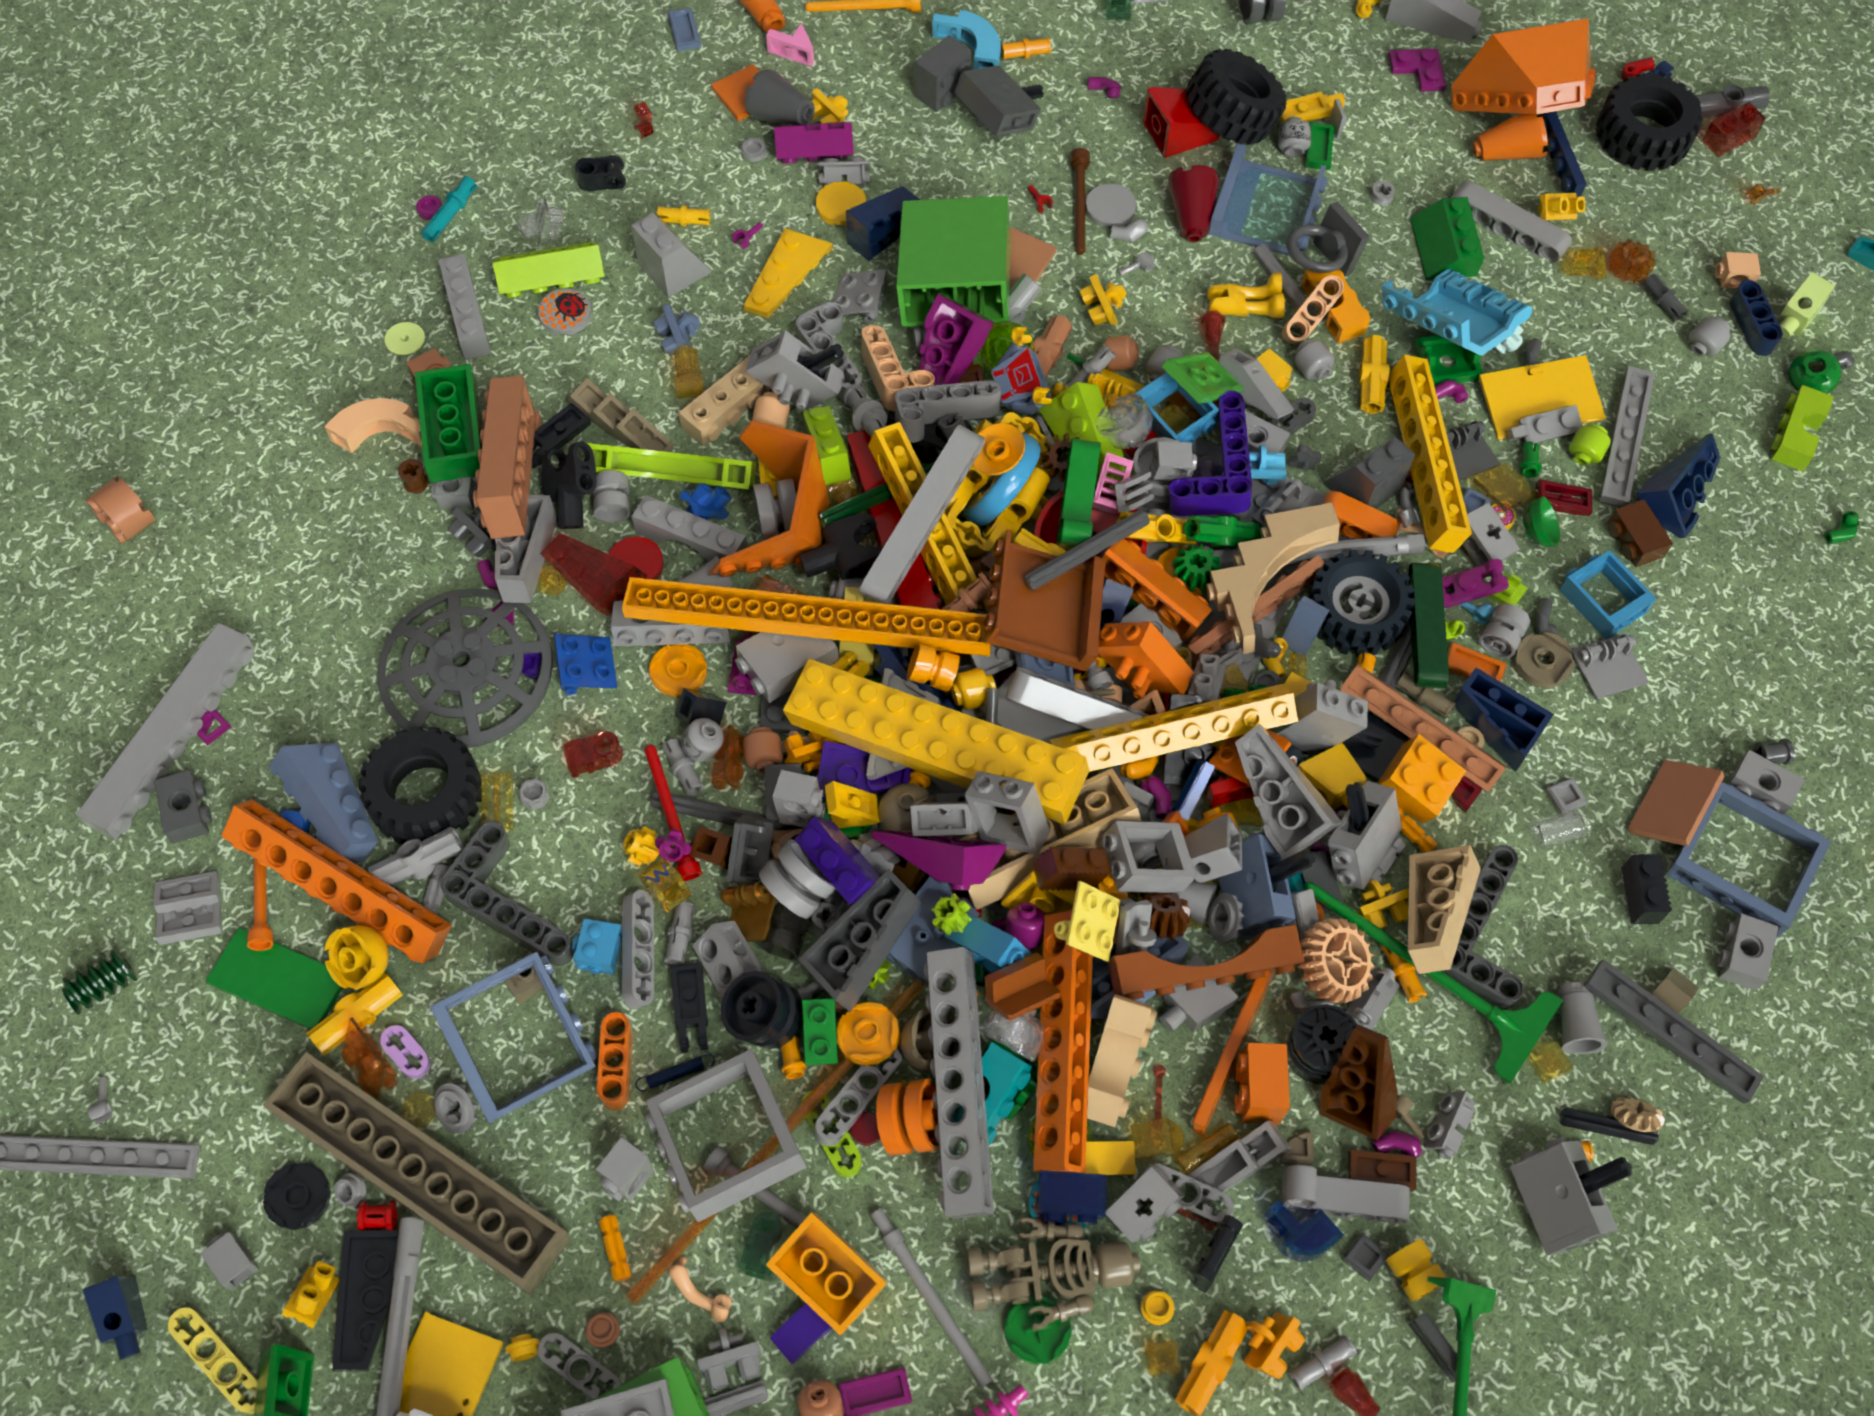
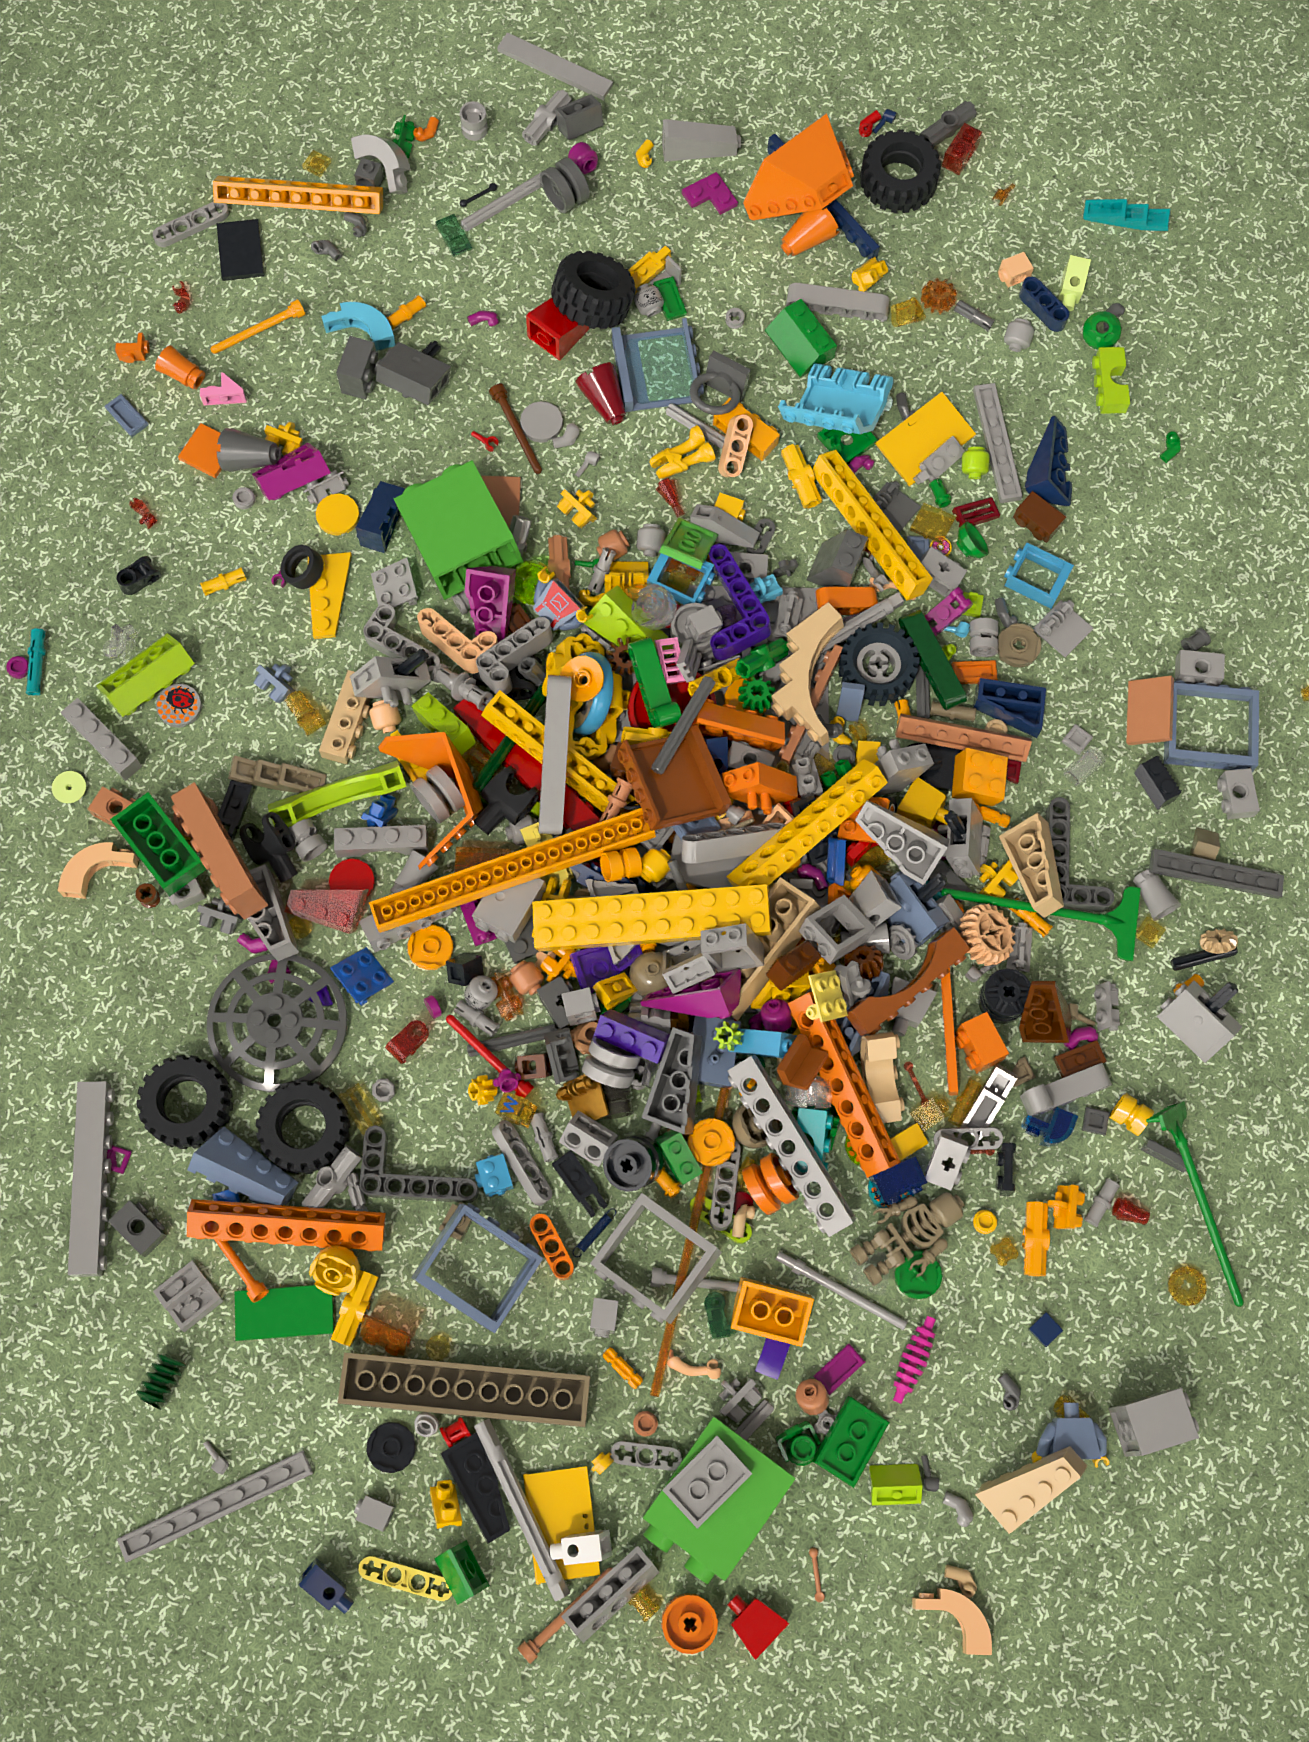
camera: 30 degrees left, 10 degrees up
(304, 666) = (159, 1085): none -> black tyre
(399, 1057) = (407, 1309): lavender beam -> none
(445, 1102) = (469, 1341): light grey gear -> none
(641, 731) = (433, 1006): none -> magenta tile
(666, 256) = (234, 625): light grey slope -> none
(771, 233) = (293, 558): none -> black tyre
(853, 1141) = (740, 1219): none -> tan arm
(1314, 360) = (754, 485): light grey head -> none

